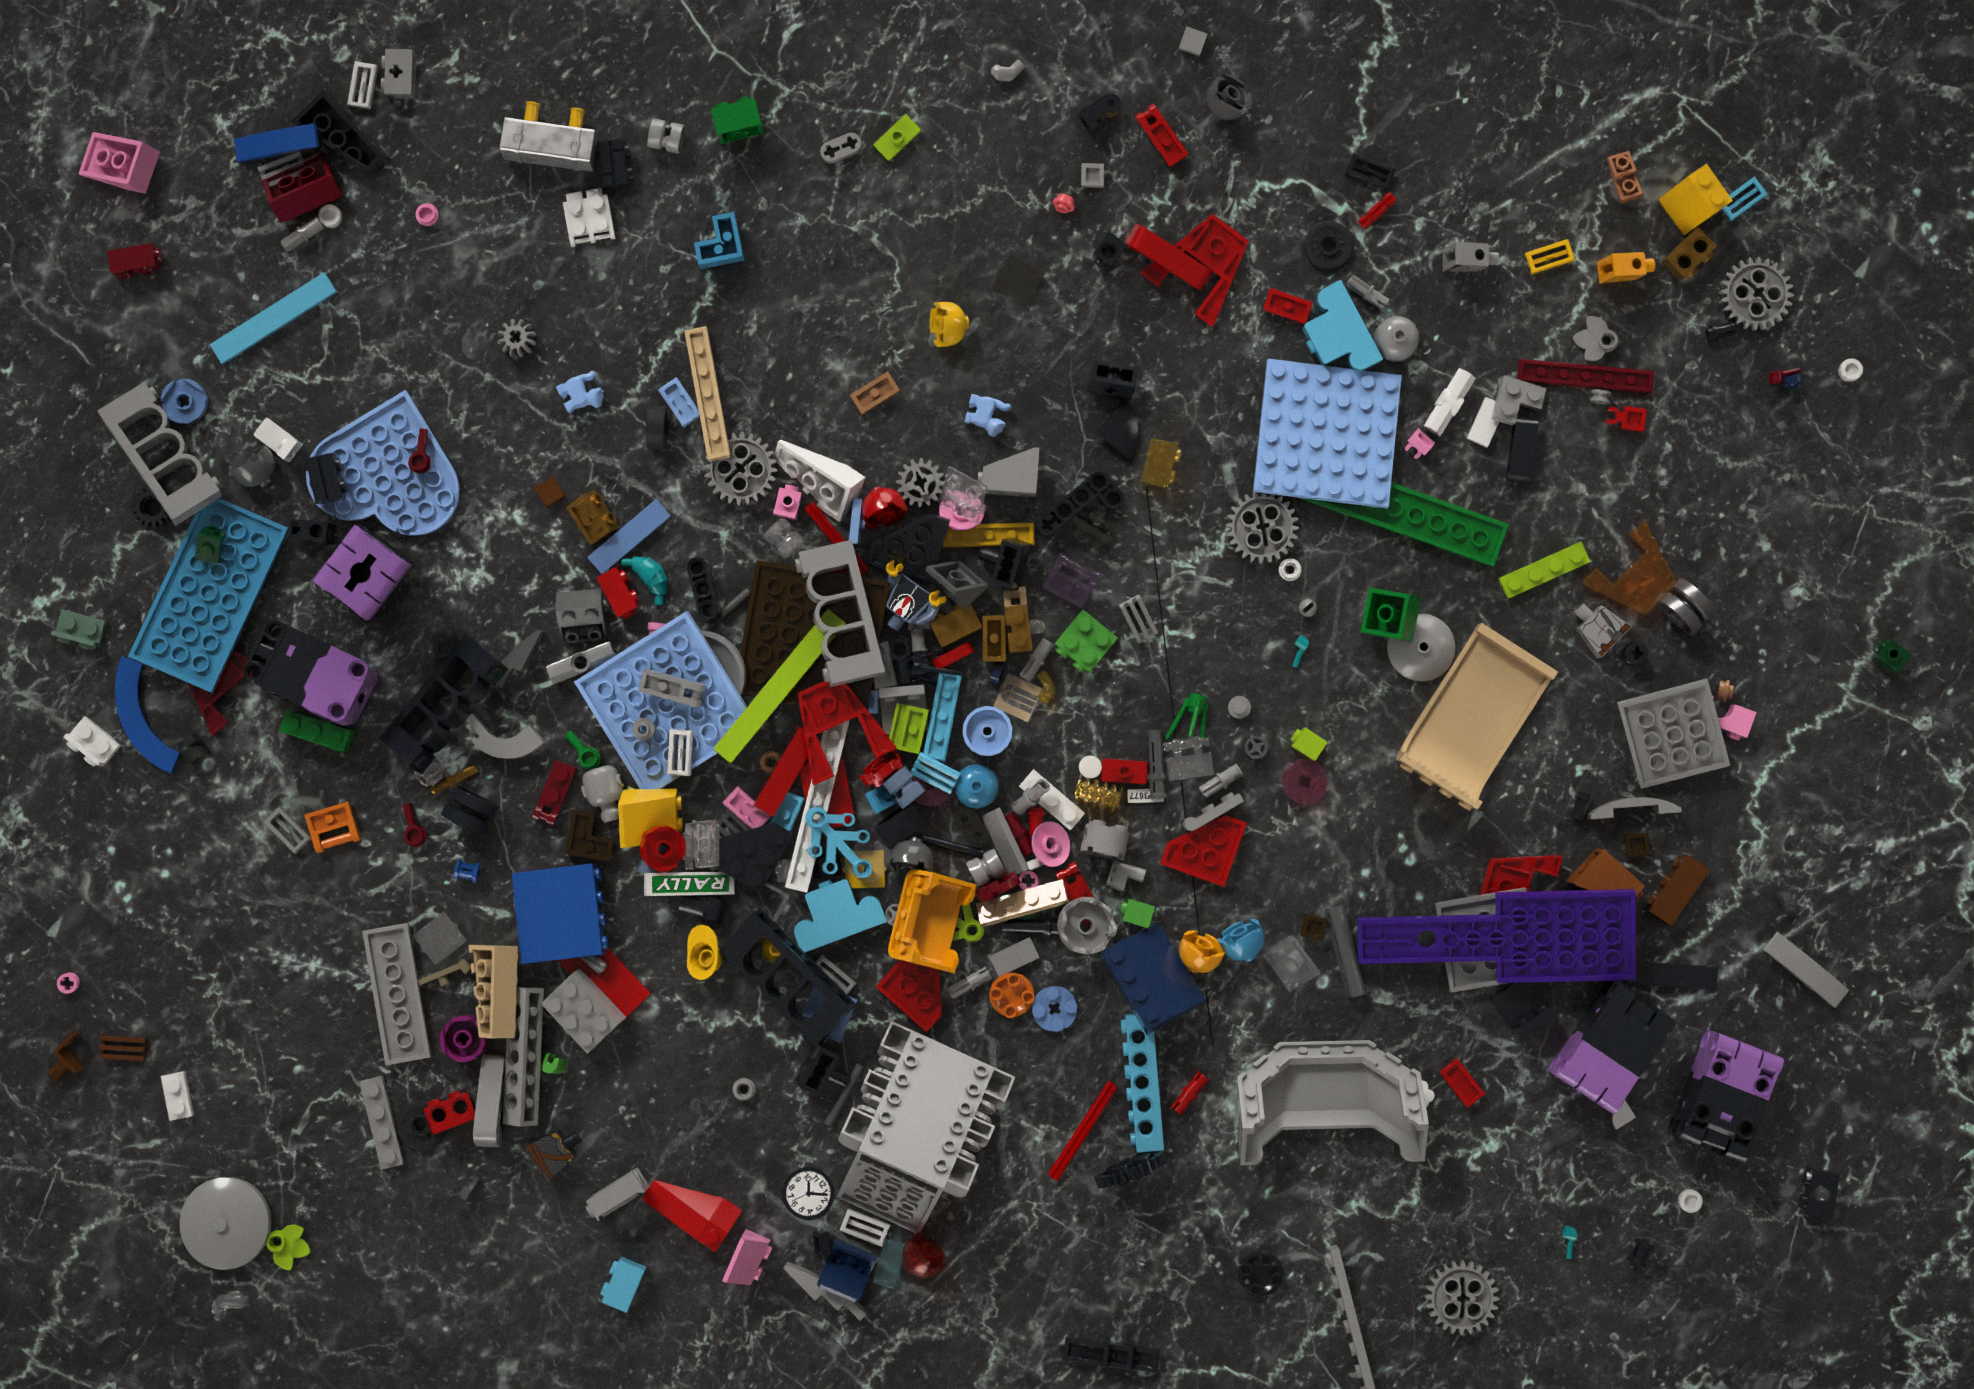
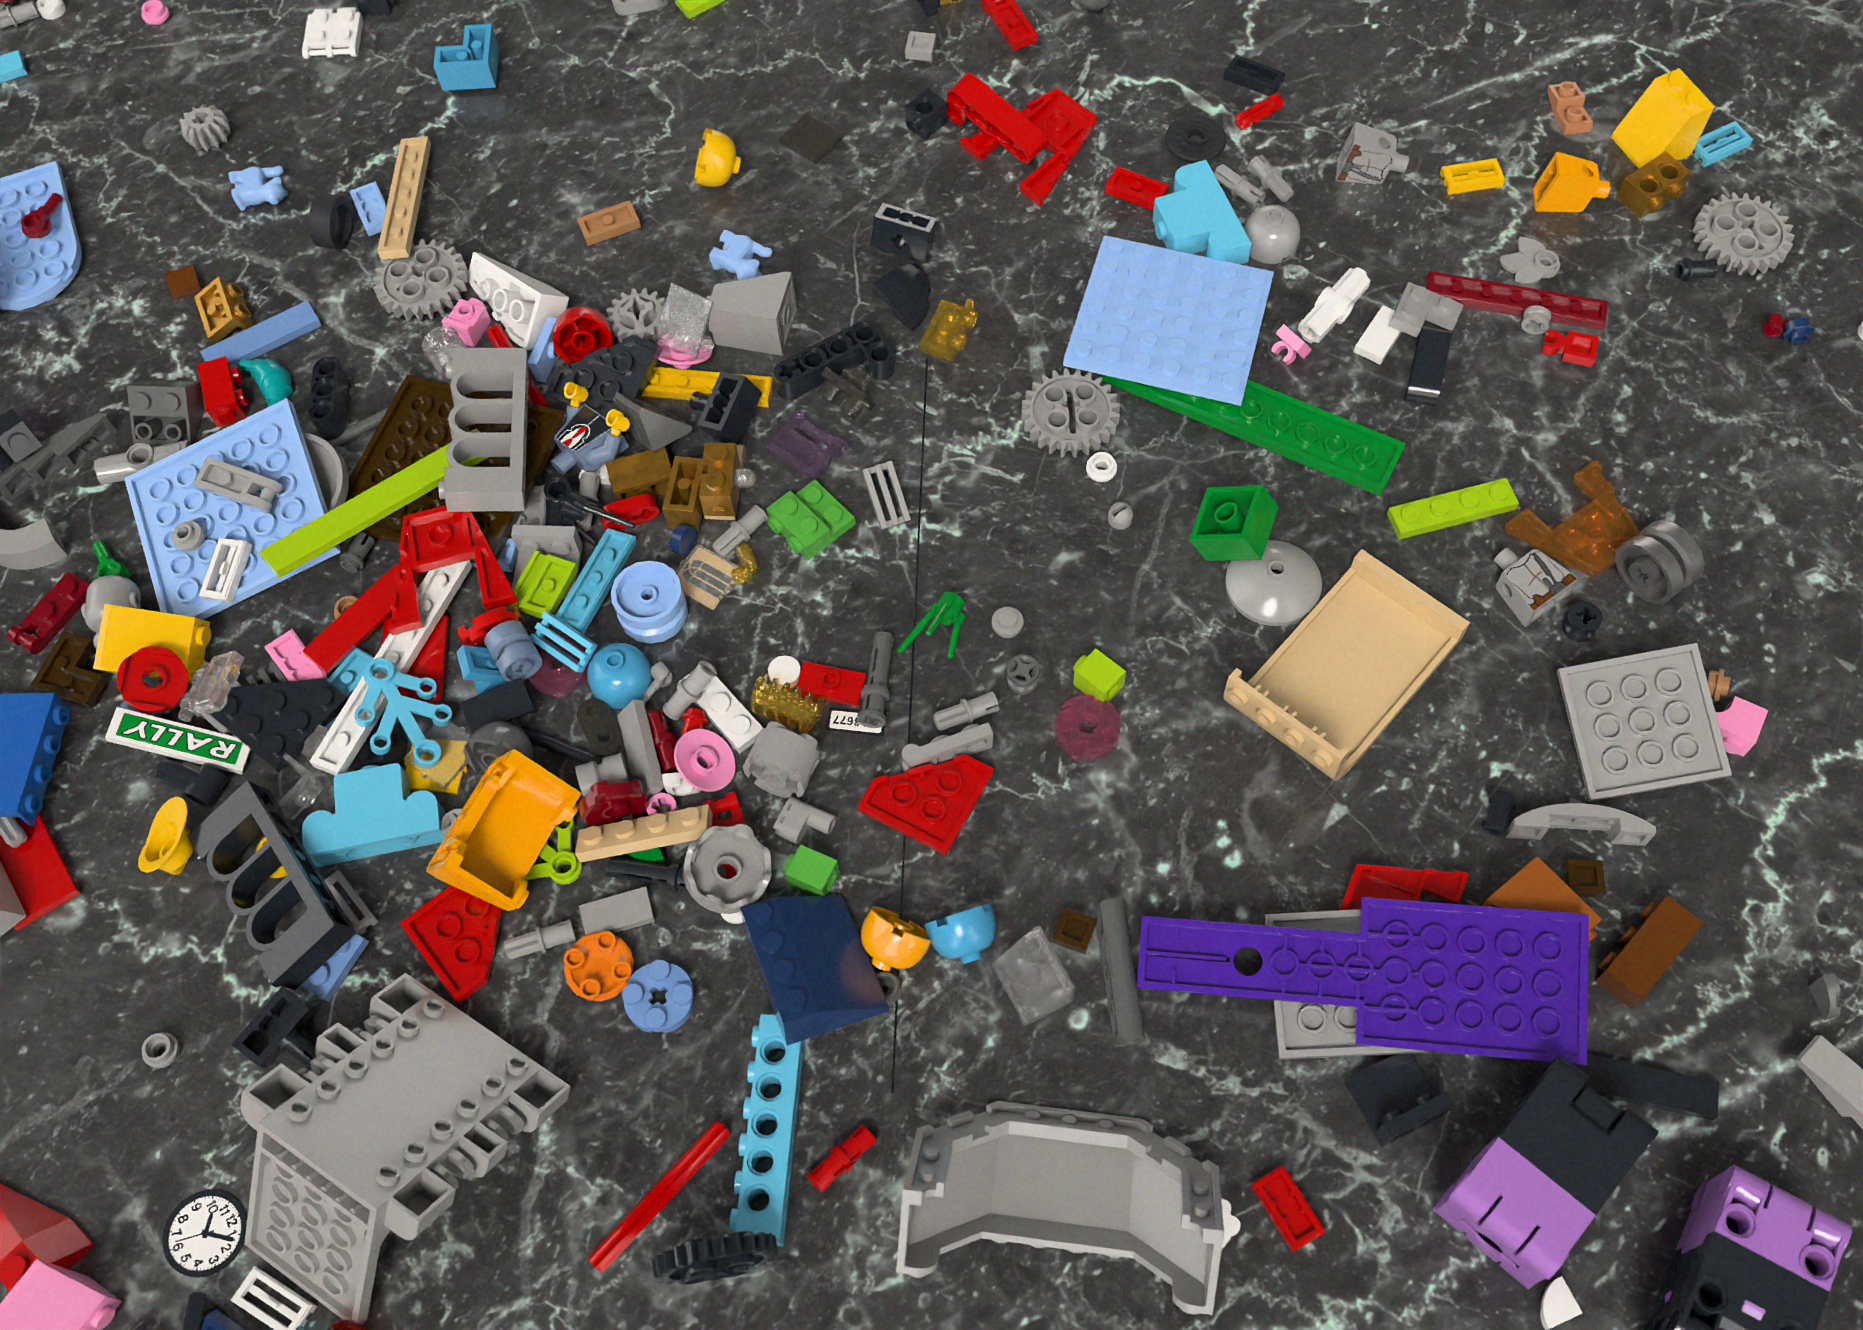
camera: 15 degrees right, 25 degrees down
(1005, 781) = (662, 678): none -> light grey hand
(1064, 203) = (881, 67): coral plate -> none
(1188, 766) = (924, 685): clear plate -> none
(1302, 643) = (1107, 555): teal hand -> none
(1392, 282) = (1271, 178): none -> light grey axle

